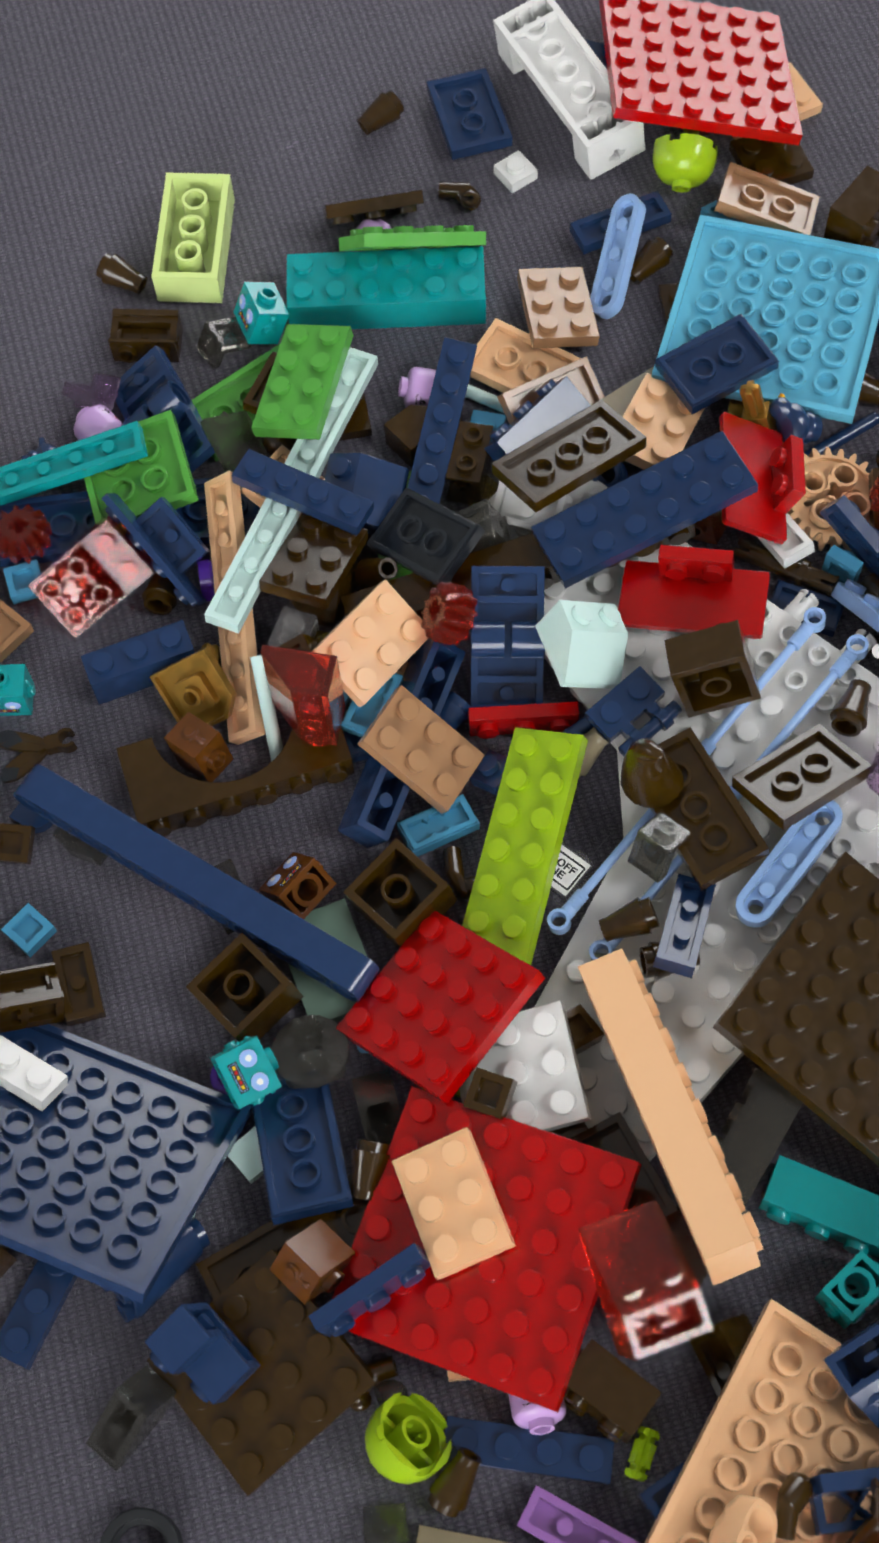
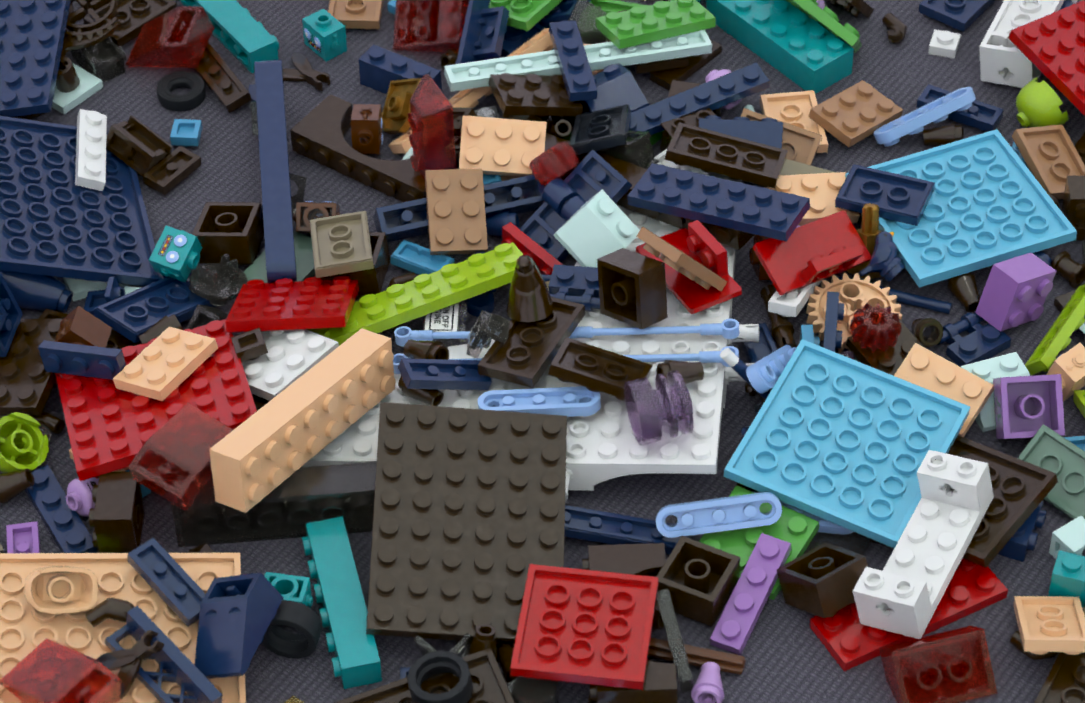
camera: 50 degrees right, 20 degrees down
(238, 1192) = (100, 297): none -> dark blue bracket
(383, 893) = (341, 244): none -> dark tan tile
(725, 598) = (680, 261): none -> medium nougat plate
(783, 1408) = (168, 580): none -> dark blue plate

